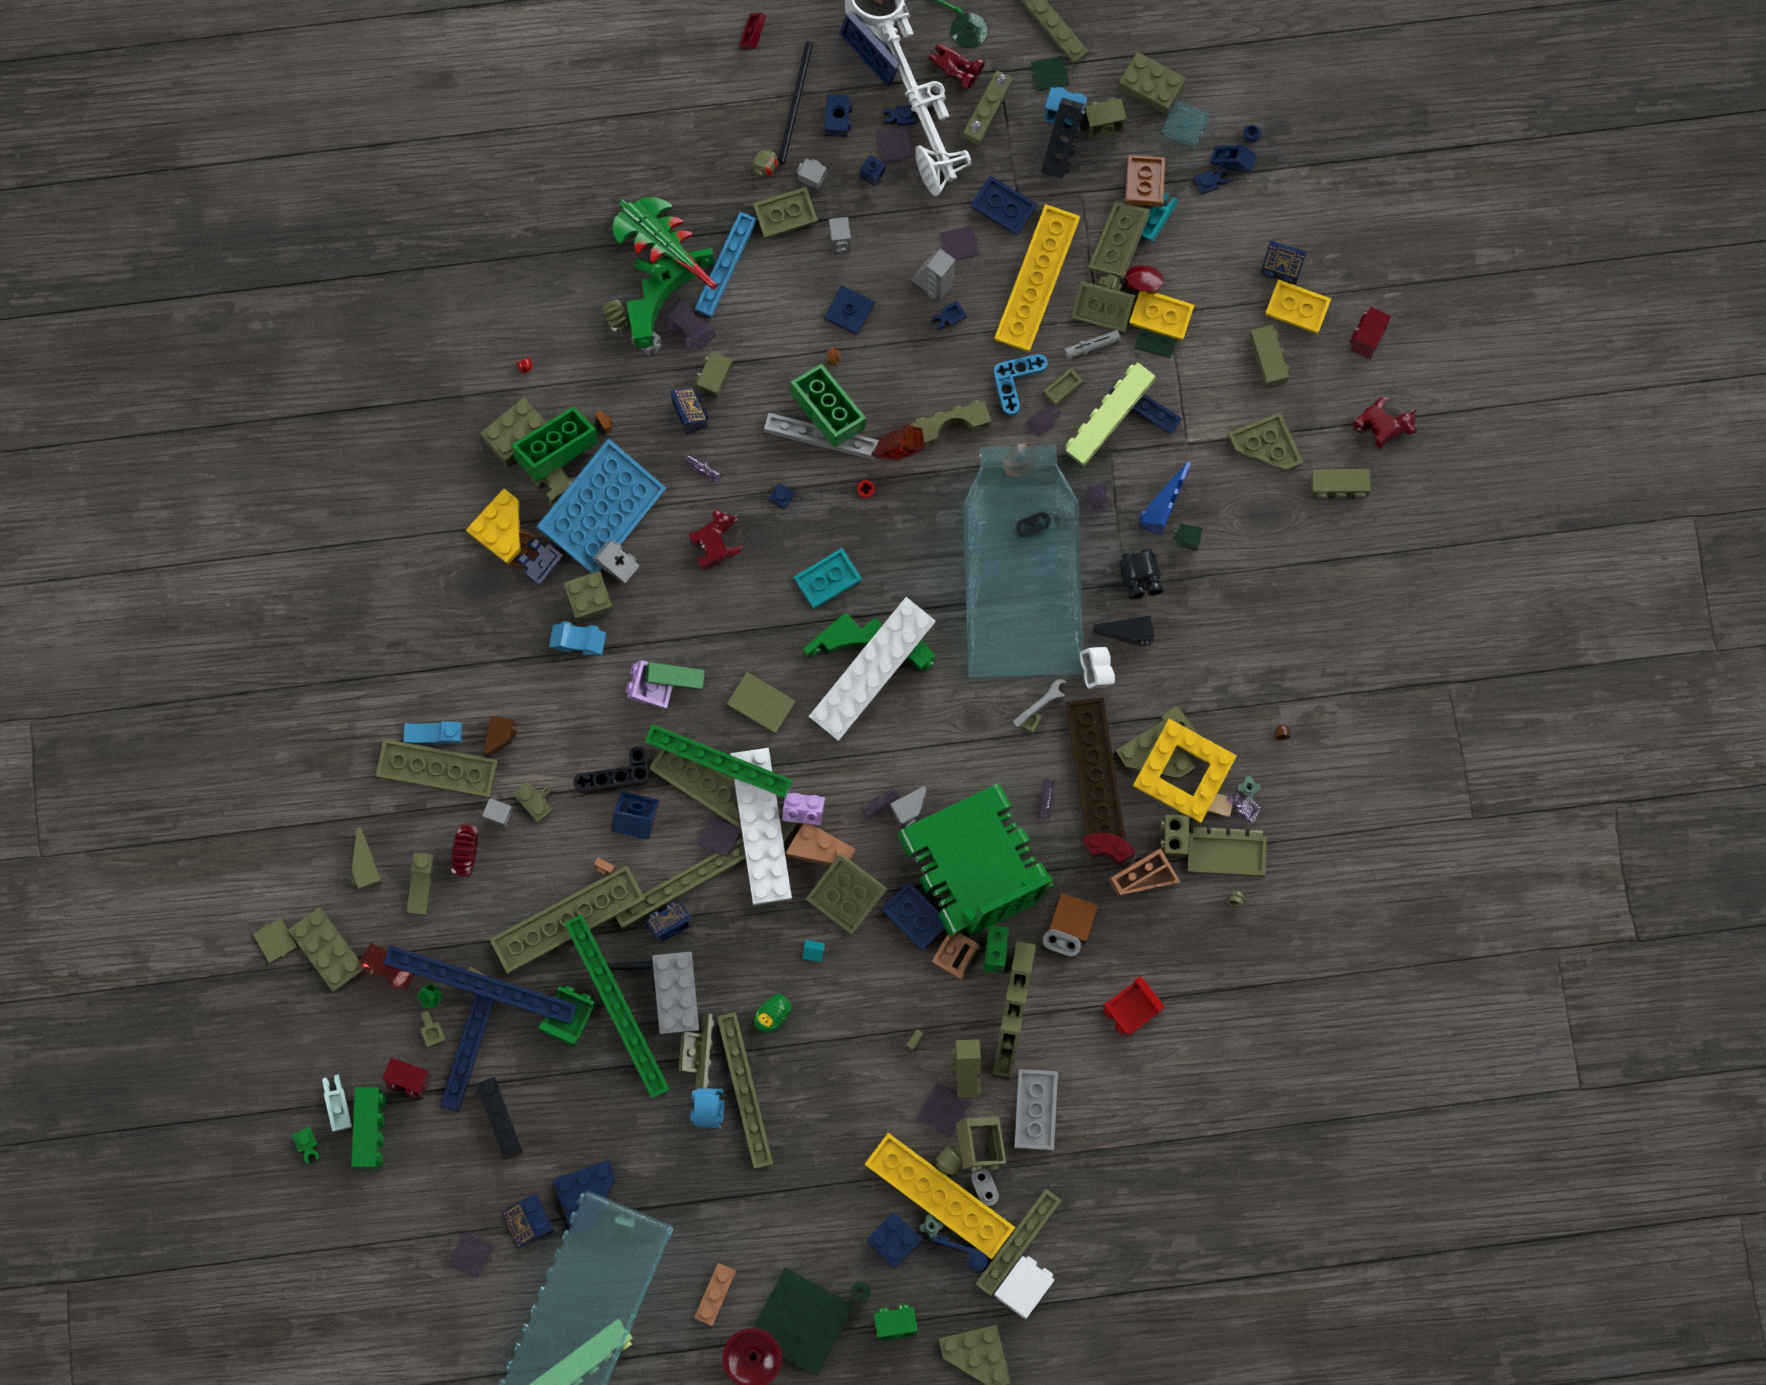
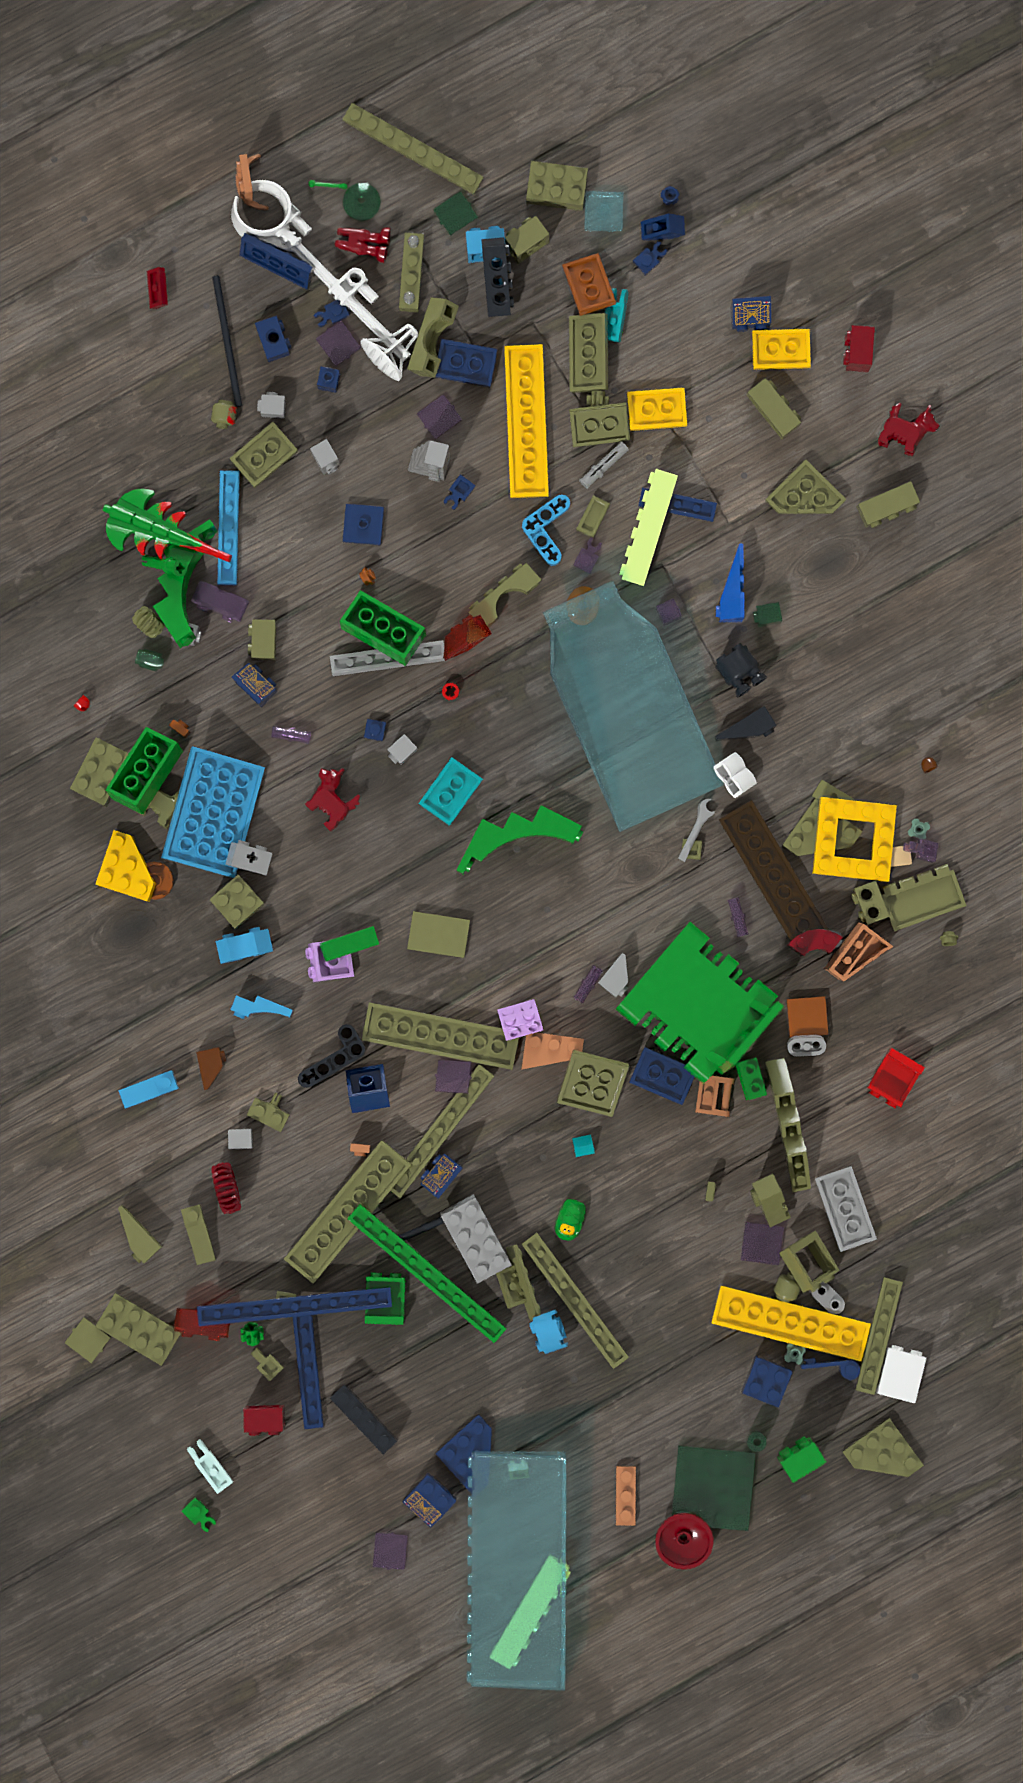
camera: 20 degrees left, 10 degrees up
(368, 1129) = (249, 1481): green brick -> none
(436, 768) = (166, 1120): olive plate -> none
(542, 563) = (180, 887): dark blue plate -> none
(555, 696) = (245, 1007): none -> dark azure slope
(603, 350) = (149, 659): none -> clear green brick
(719, 761) = (425, 1009): green plate -> none
(762, 835) = (488, 1052): white plate -> none
(798, 522) = (401, 750): none -> light grey brick
(872, 668) = (528, 862): white plate -> none
(994, 155) = (437, 317): none -> olive arch
(1034, 528) = (623, 666): black beam -> none
(1144, 279) = (627, 381): dark red dish -> none
(1155, 344) = (662, 439): clear green tile -> none

